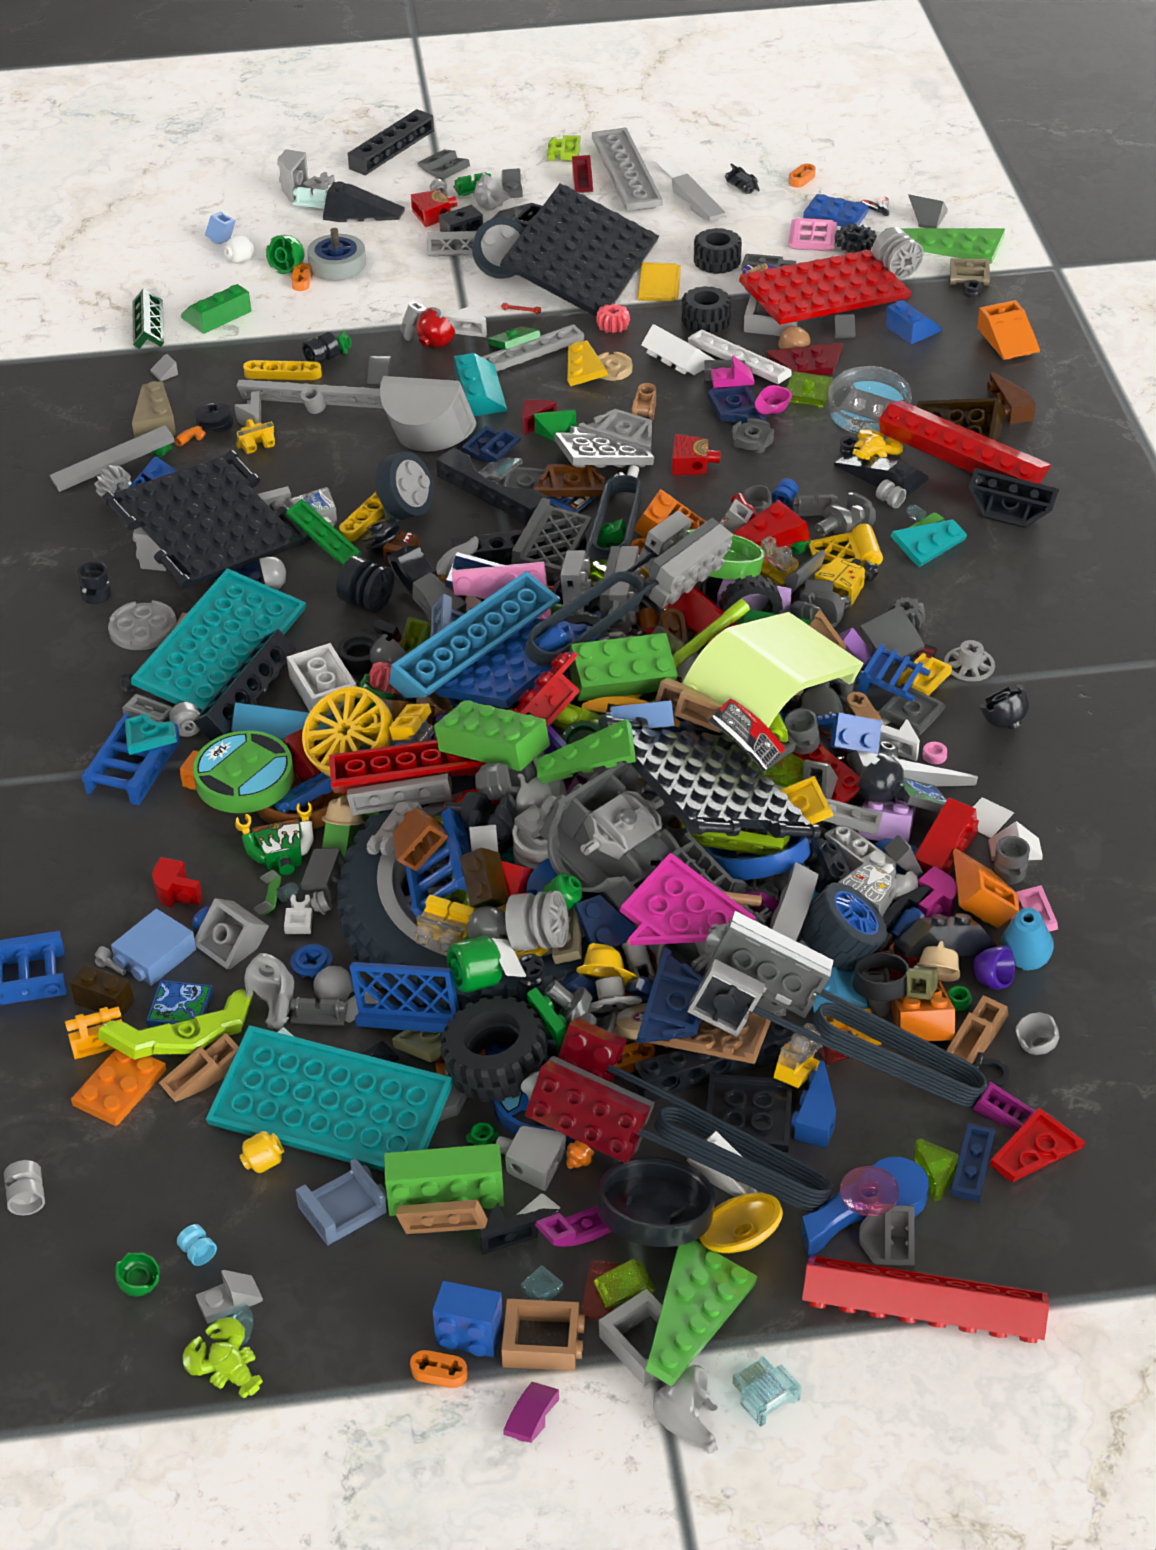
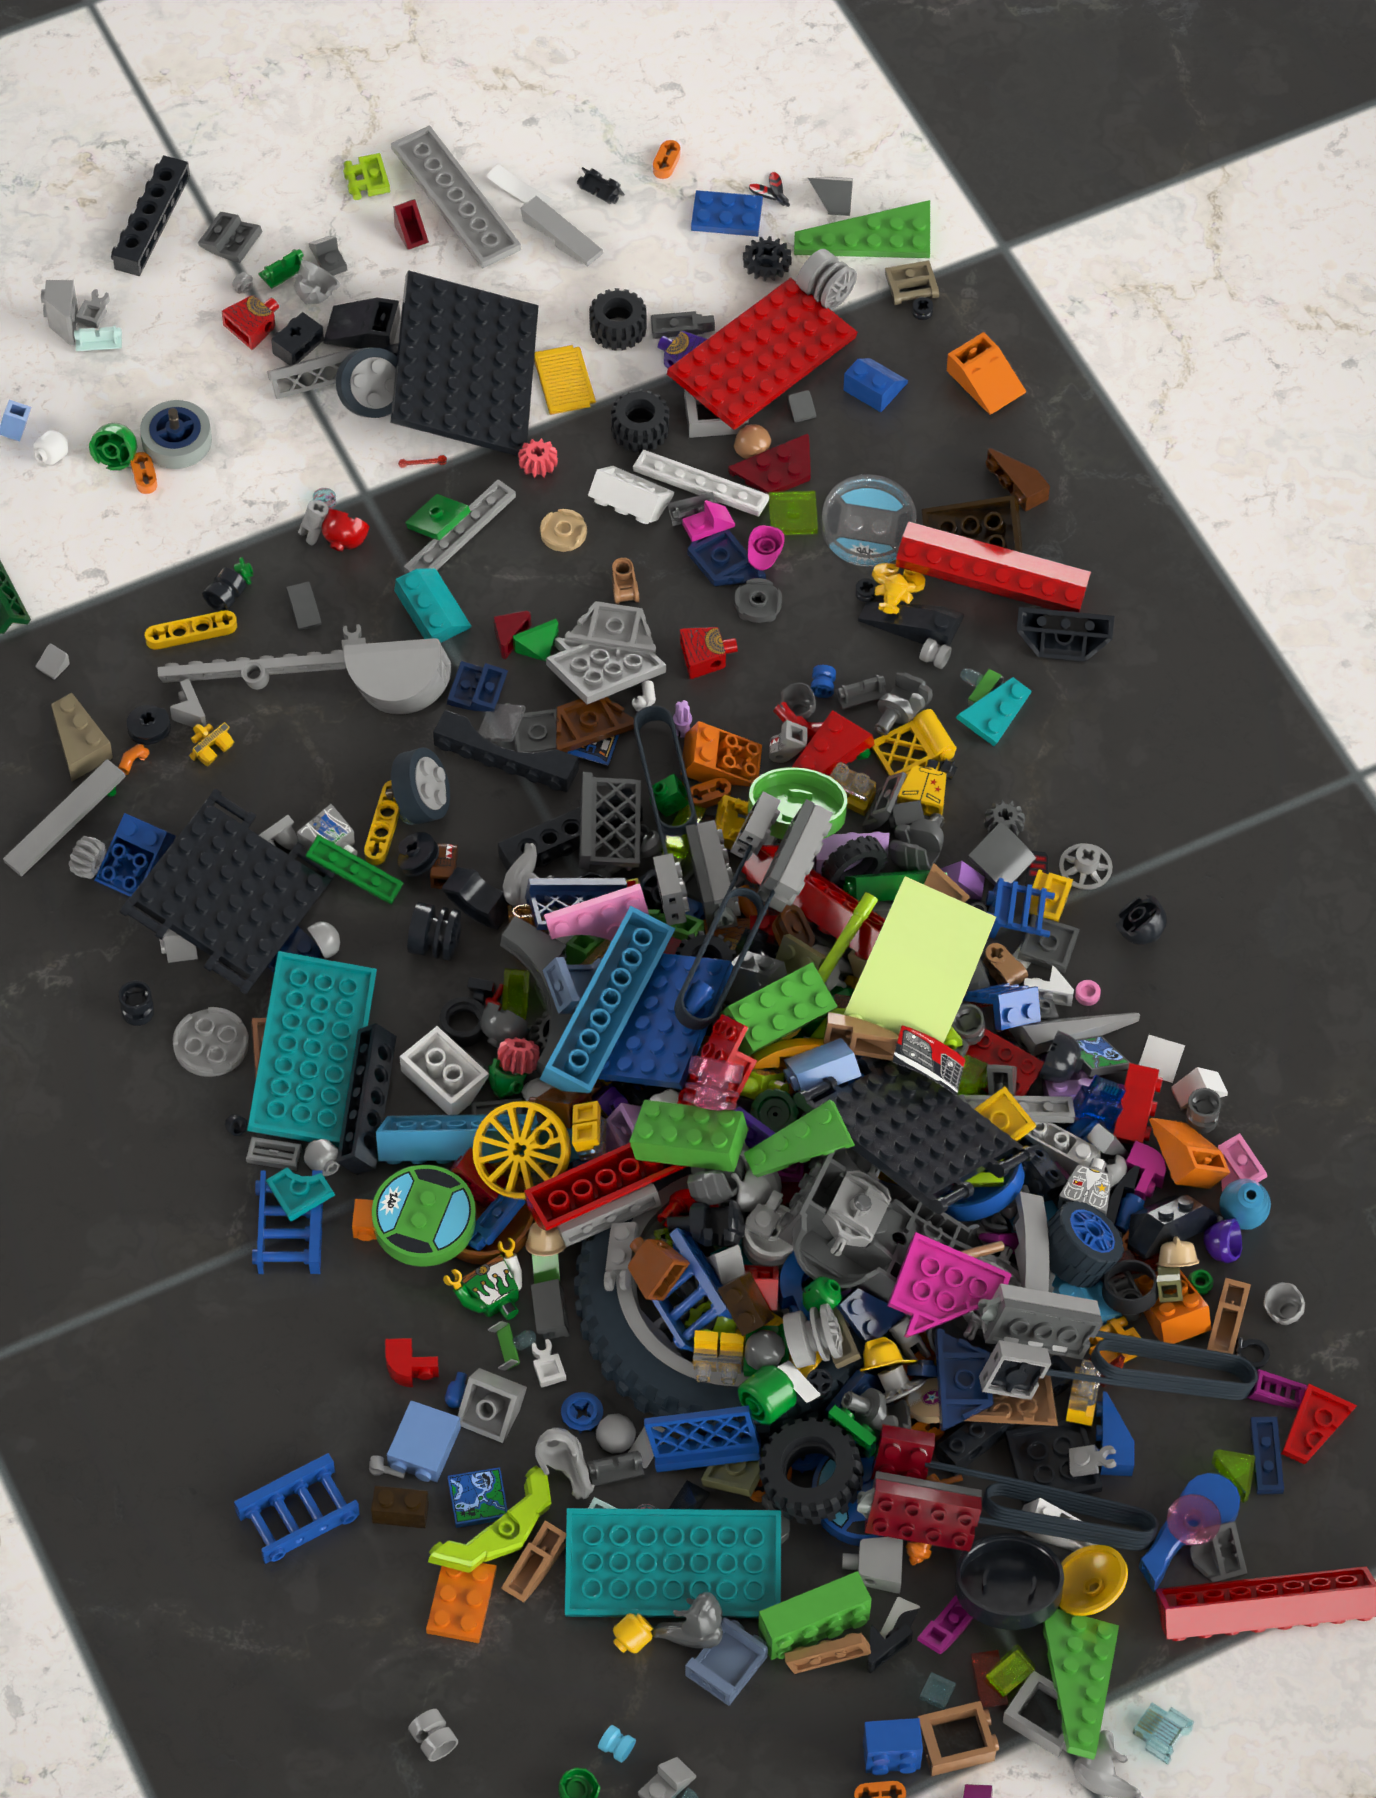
camera: 20 degrees left, 15 degrees up
(86, 1041) = (415, 1557): light orange plate -> none
(218, 309) = (70, 551): slope -> none
(321, 902) = (562, 1343): light grey plate -> none
(327, 1155) = (701, 1625): none -> dark grey piece
(351, 202) = (159, 336): black wedge -> none
(468, 322) = (375, 504): white slope -> none
(482, 1135) = (823, 1549): green plate -> none
(528, 684) = (713, 1083): none -> clear pink wheel
(583, 364) = (532, 537): yellow wing -> none
(649, 489) = (682, 718): none -> lavender axle
(780, 1113) = (1086, 1459): none -> light grey plate
(812, 234) = (713, 259): bright pink piece -> none
(909, 821) = (1100, 1101): none -> clear blue piece

